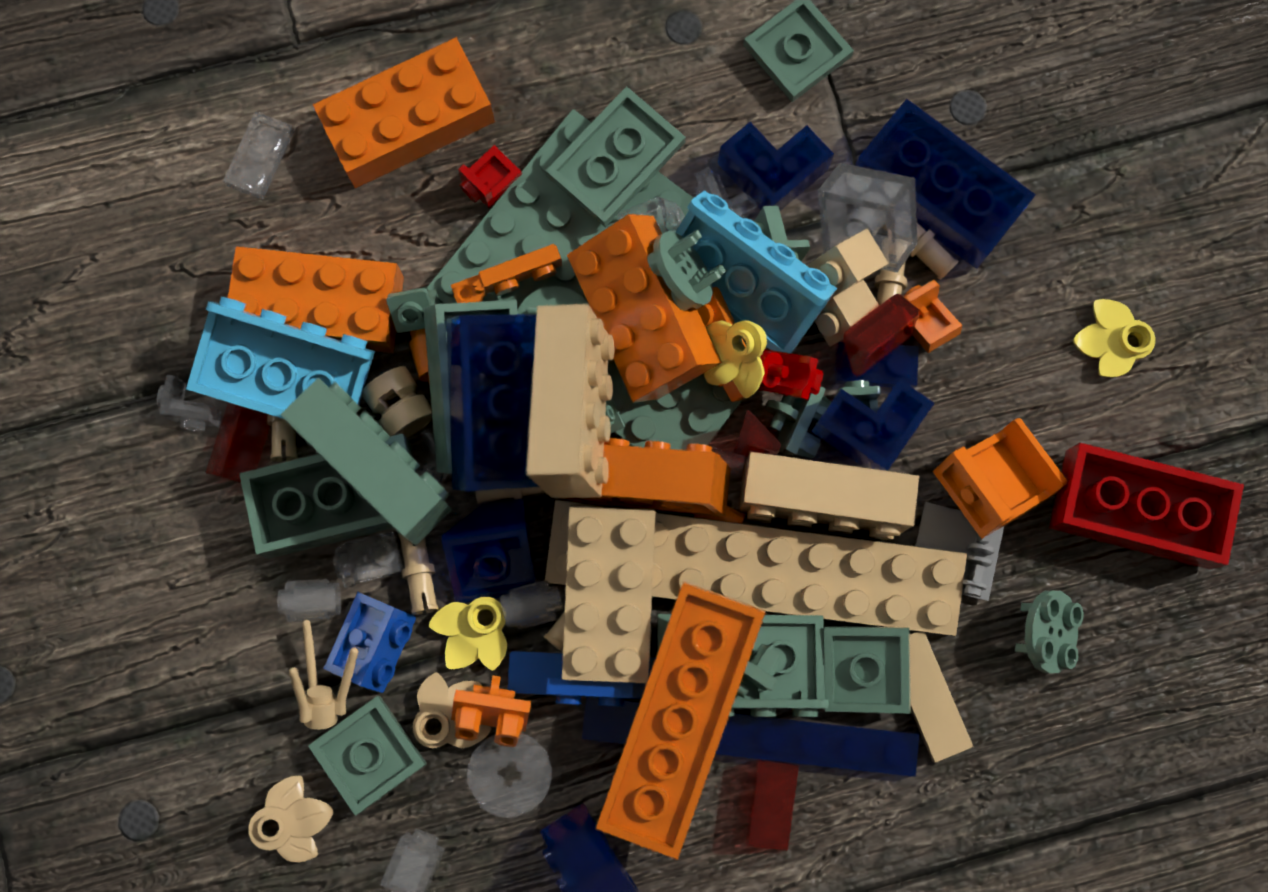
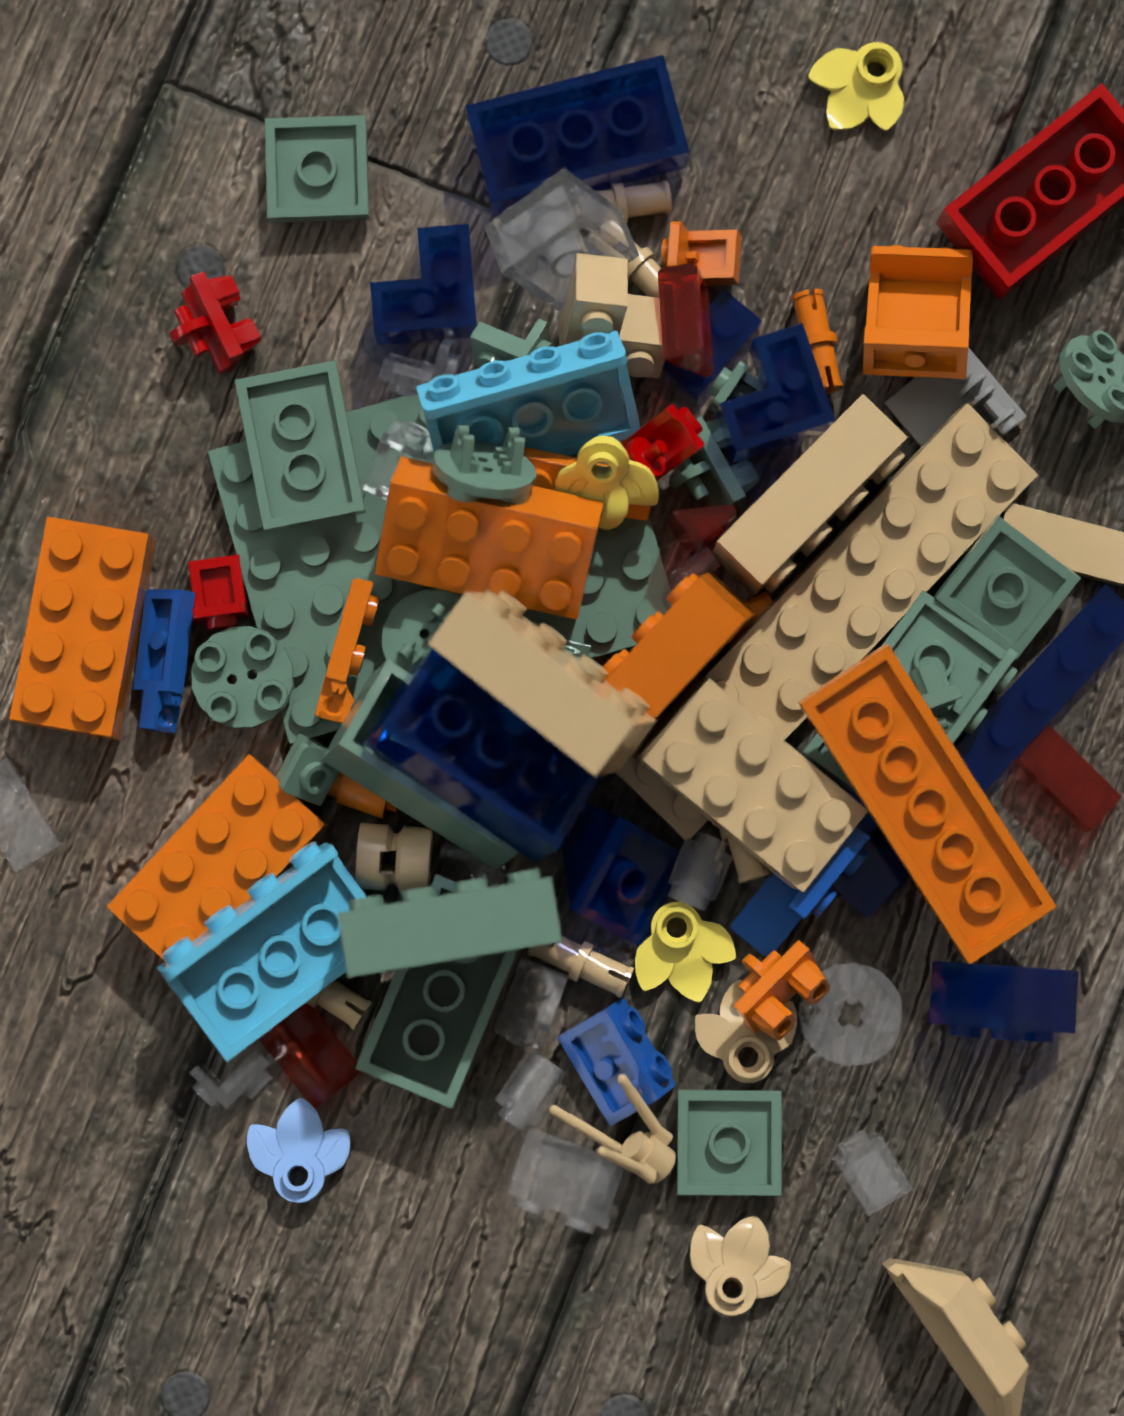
camera: 55 degrees left, 5 degrees up
(174, 478) = (298, 1143): none -> light blue plate
(261, 664) = (564, 1179): none -> clear bracket
(422, 174) = (163, 657): none -> blue hinge
(458, 214) = (237, 653): none -> sand green plate
(665, 42) = (206, 326): none -> red hips
(932, 429) = (813, 315): none -> orange pin

